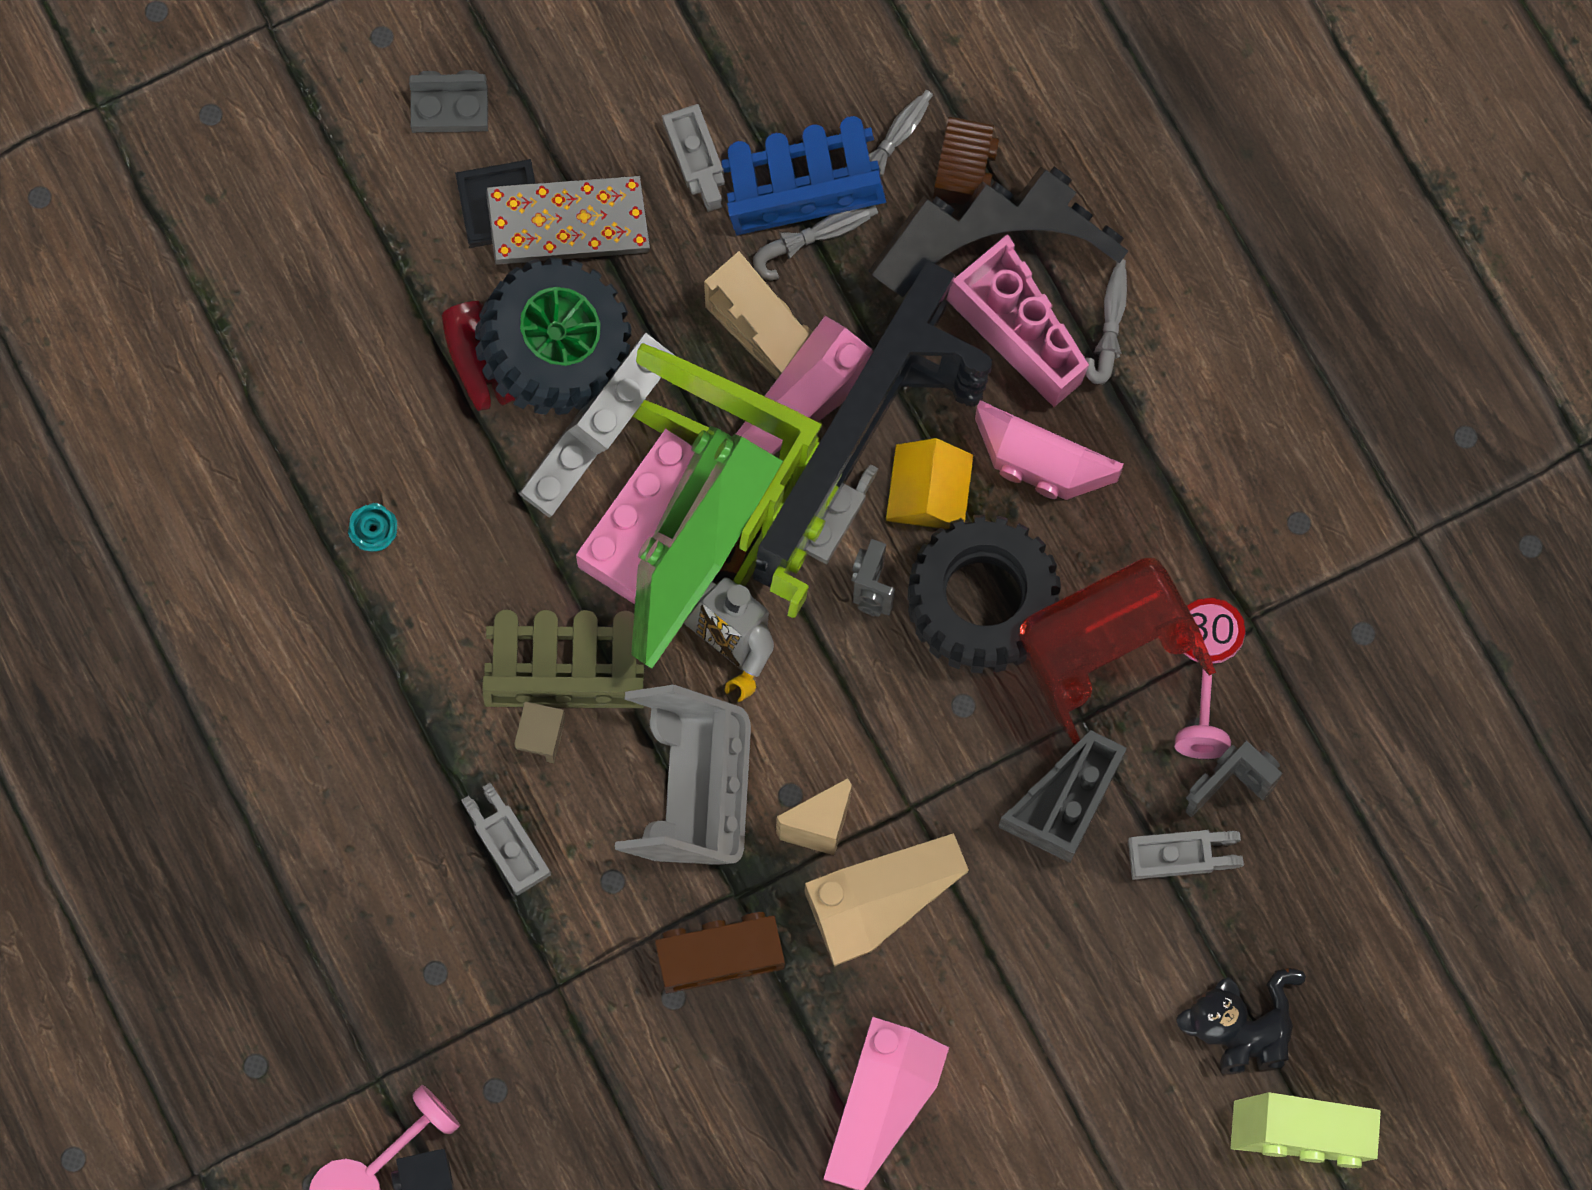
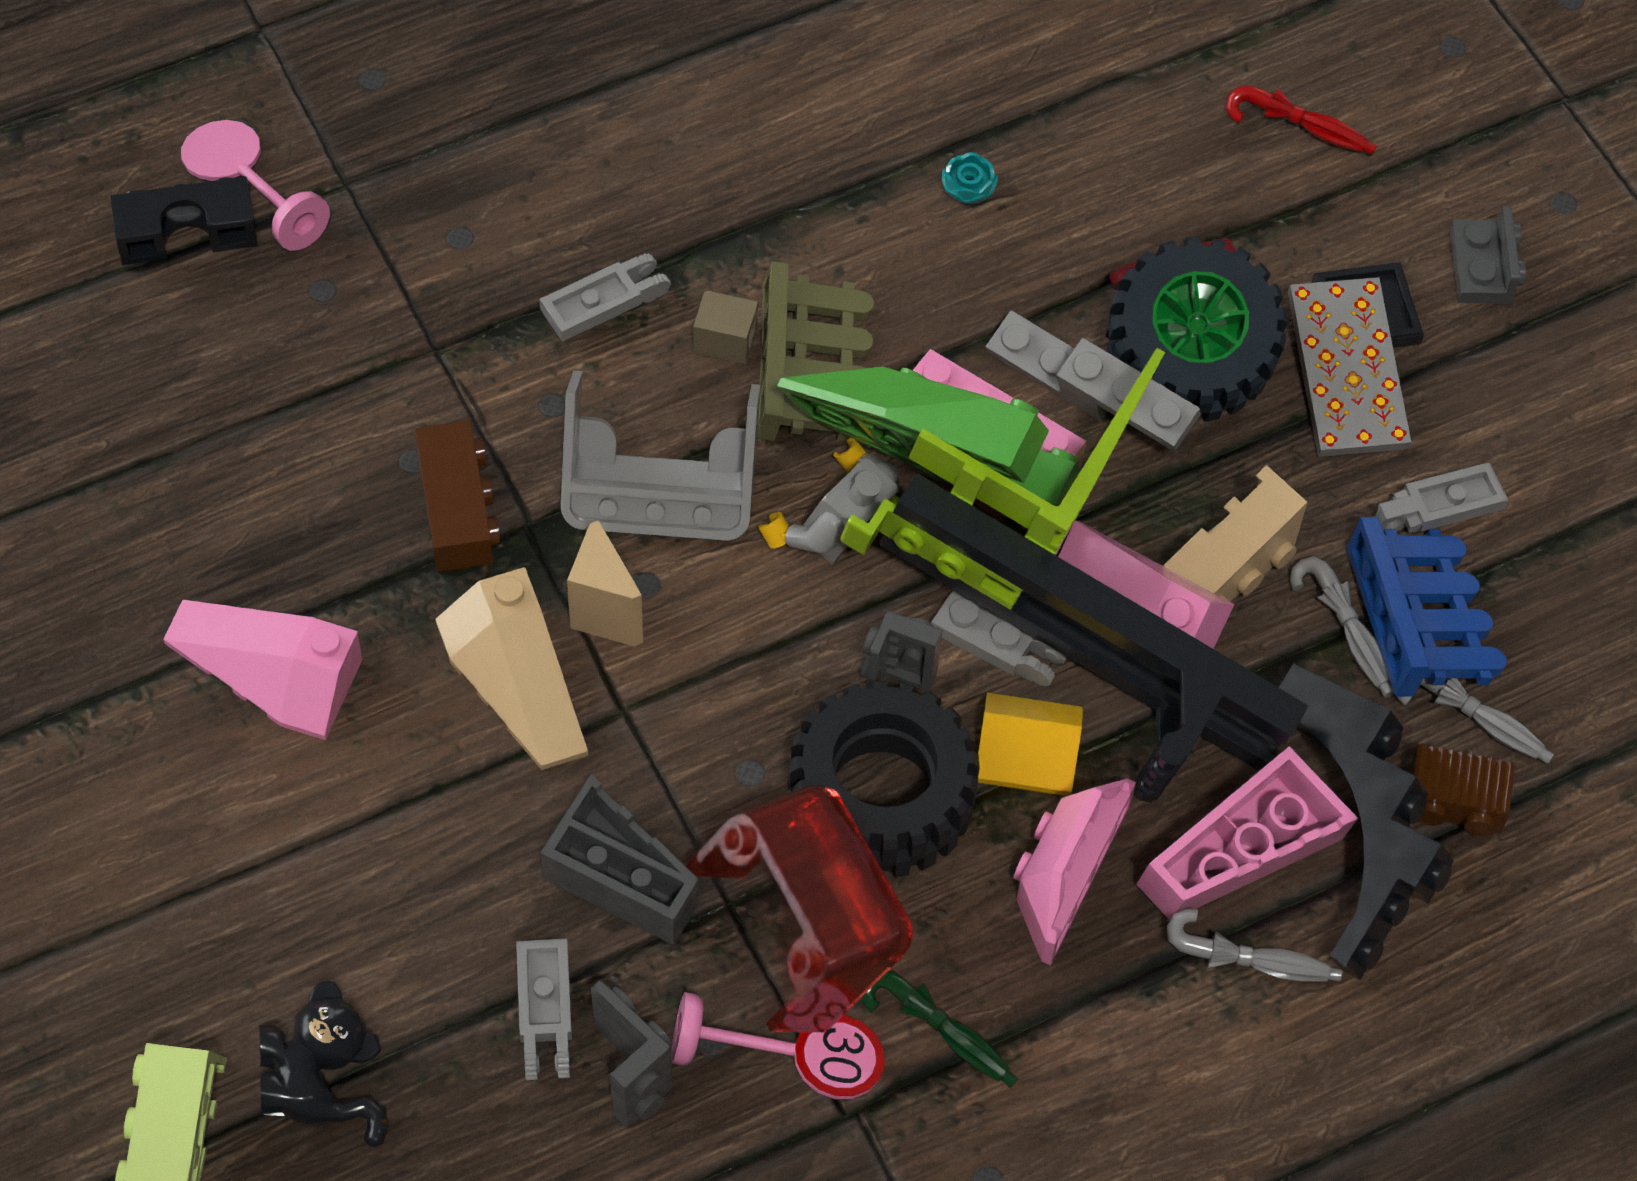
camera: 90 degrees right, 15 degrees down
(288, 263) = (1278, 106): none -> red piece
(1194, 536) = (962, 1040): none -> dark green piece

